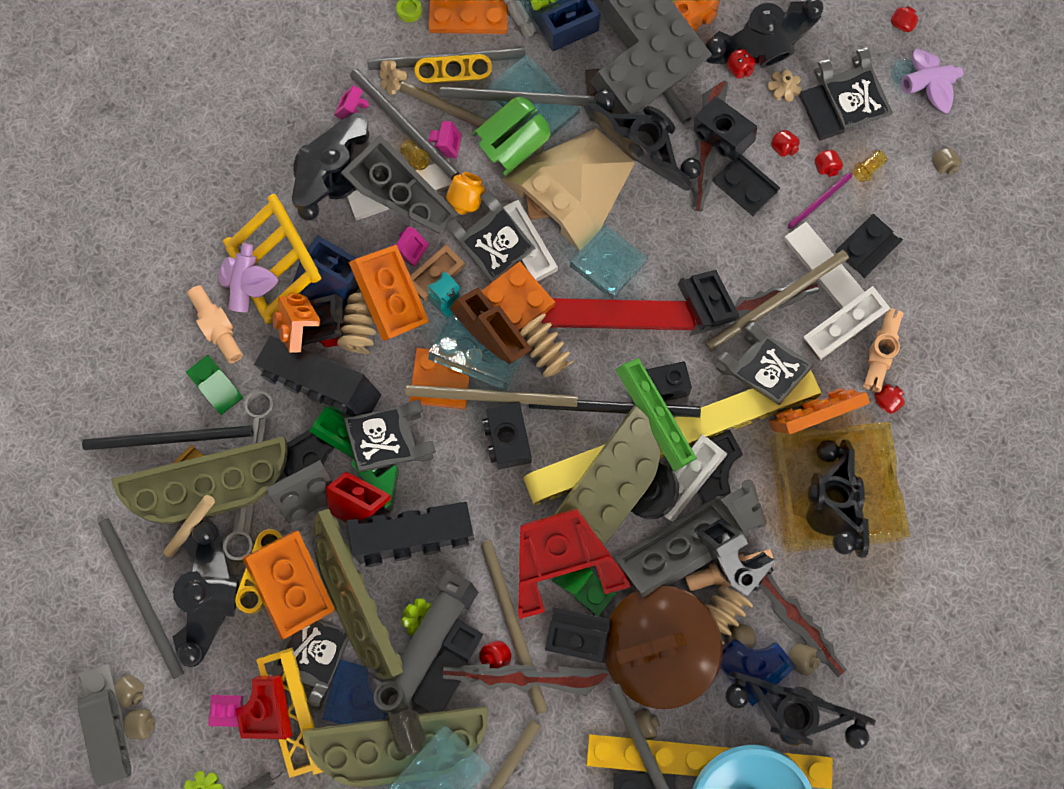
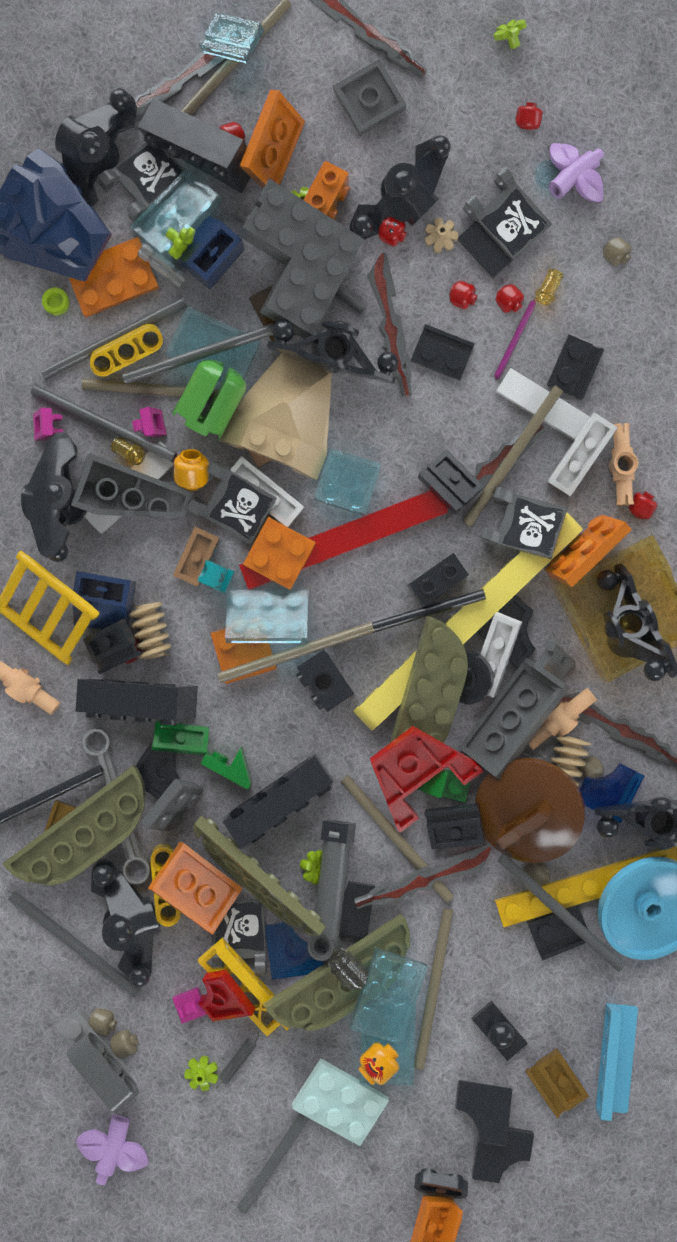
camera: 20 degrees left, 15 degrees up
(186, 529) = (88, 874): tan bar -> none
(214, 385) = (47, 739): green slope -> none
(245, 279) = (29, 636): lavender plant -> none
(292, 314) = (93, 657): orange bracket -> none
(354, 498) = (219, 794): red slope -> none
(386, 438) = (220, 728): flag -> none
(389, 292) = (165, 597): orange plate -> none
(391, 76) = (70, 380): tan plant -> none
(411, 246) = (163, 541): dark pink tile -> none
(462, 640) = (361, 872): black tile -> none
(490, 326) = (269, 591): reddish brown slope -> none
(495, 654) = (391, 868): red piece -> none
(545, 347) = (324, 587): tan piece -> none
(661, 420) = (444, 611): bright green tile -> none
(721, 116) = (394, 295): black brick -> none
(723, 545) = (571, 723): black tile -> none
(804, 658) = (648, 765): dark tan piece -> none

